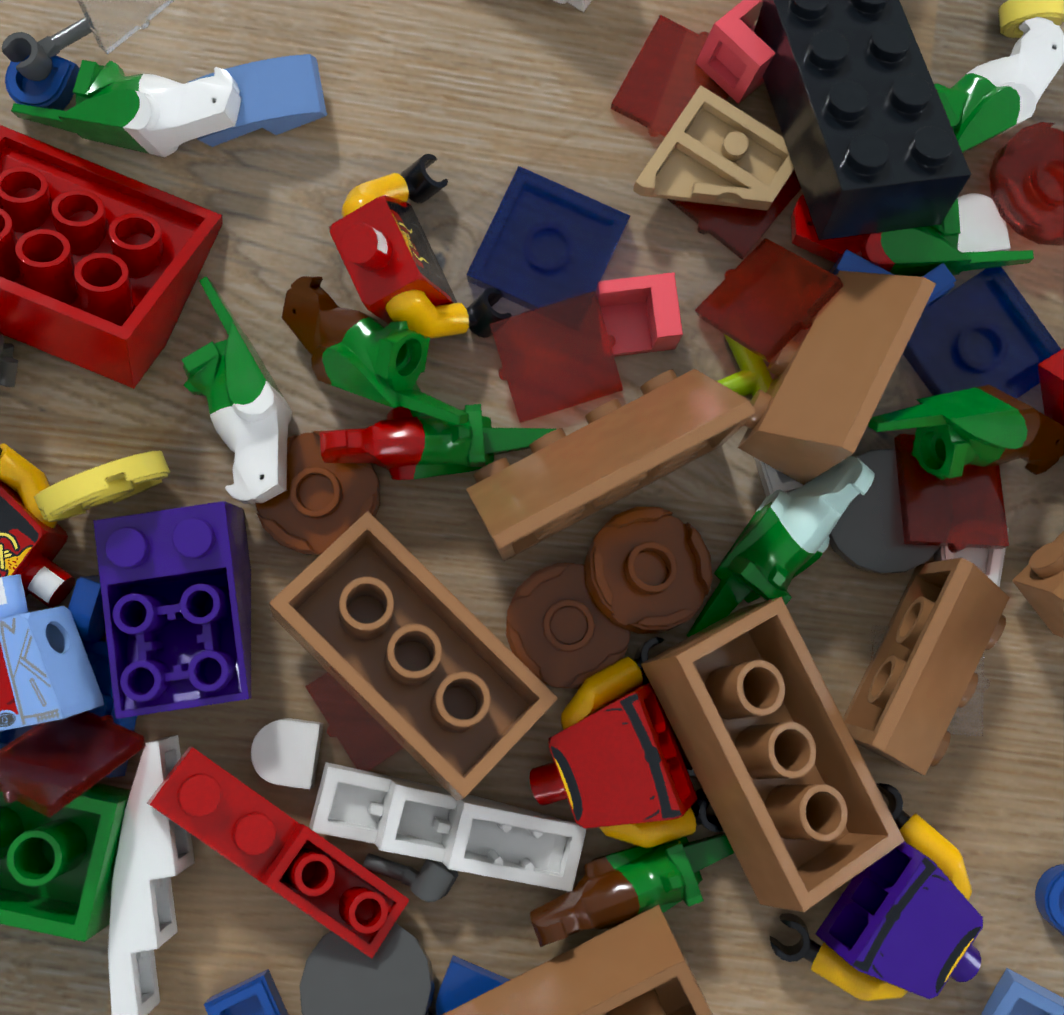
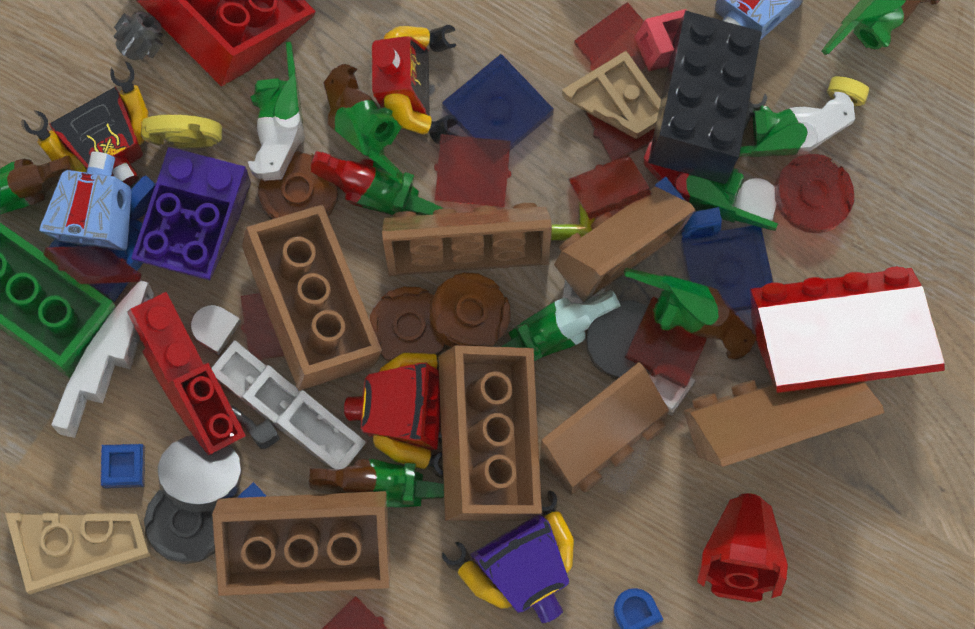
camera: 25 degrees right, 10 degrees down
(641, 313) = (532, 166): coral panel -> none

